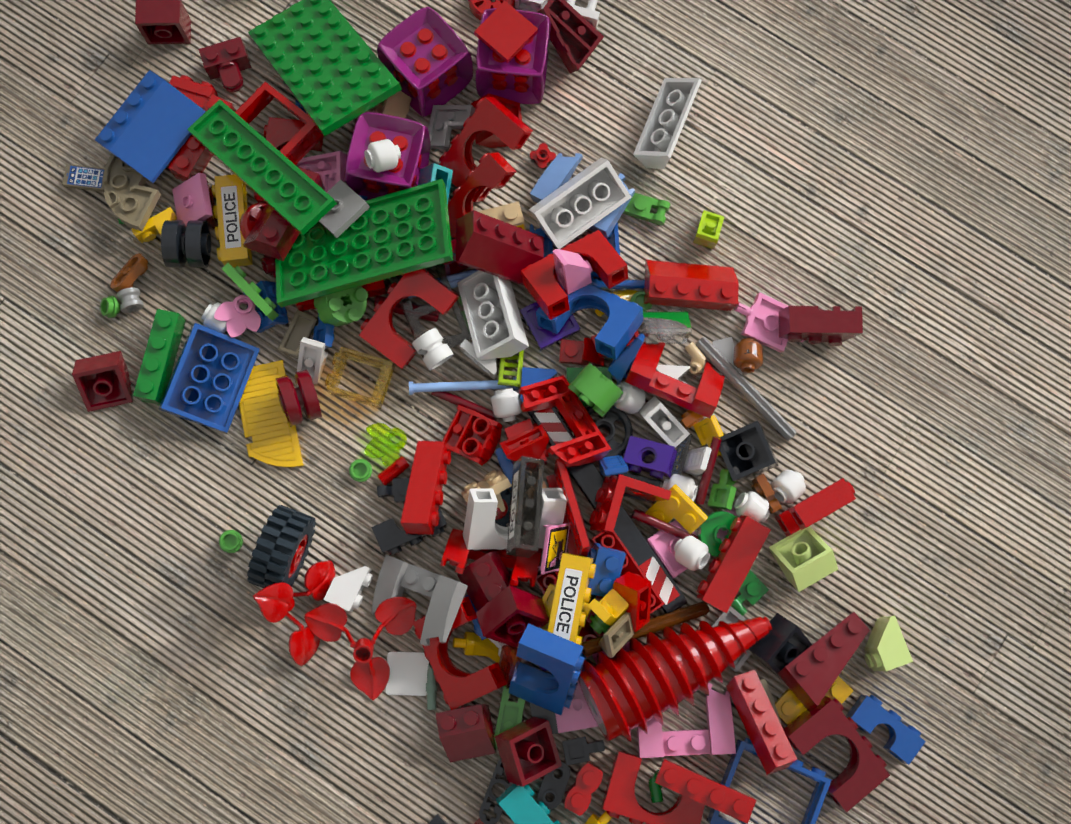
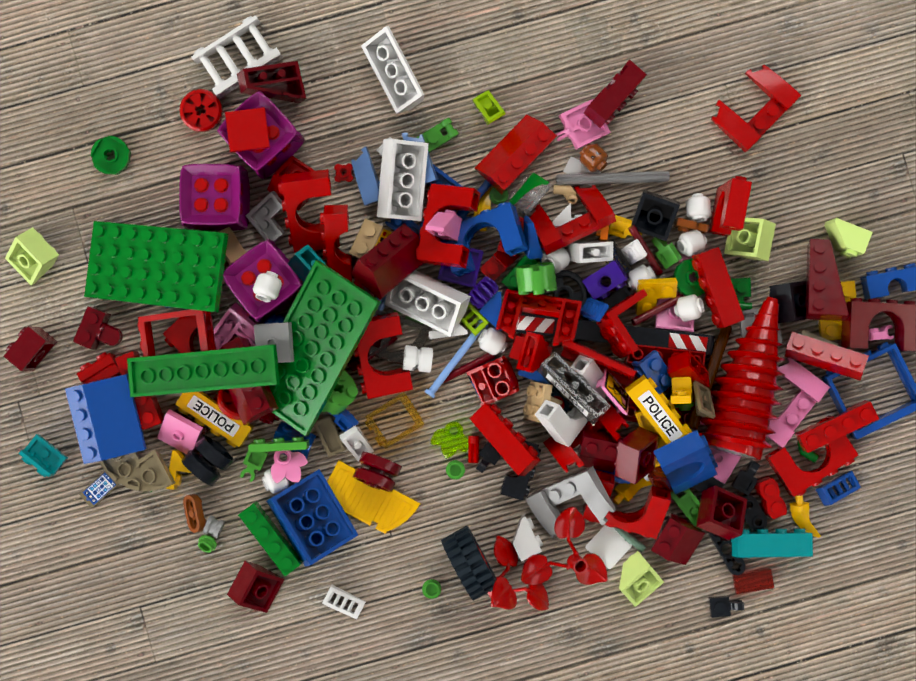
camera: 50 degrees left, 10 degrees up
(76, 108) = (43, 456): none -> teal bracket
(145, 473) = (333, 589): none -> white slope
(221, 287) = (255, 461): none -> bright green plate
(398, 728) = (638, 579): none -> yellowish green slope
(542, 356) = (483, 292): none -> dark purple gear
(821, 753) = (876, 334): none -> bright pink plate
(952, 478) = (745, 133): none -> red wedge

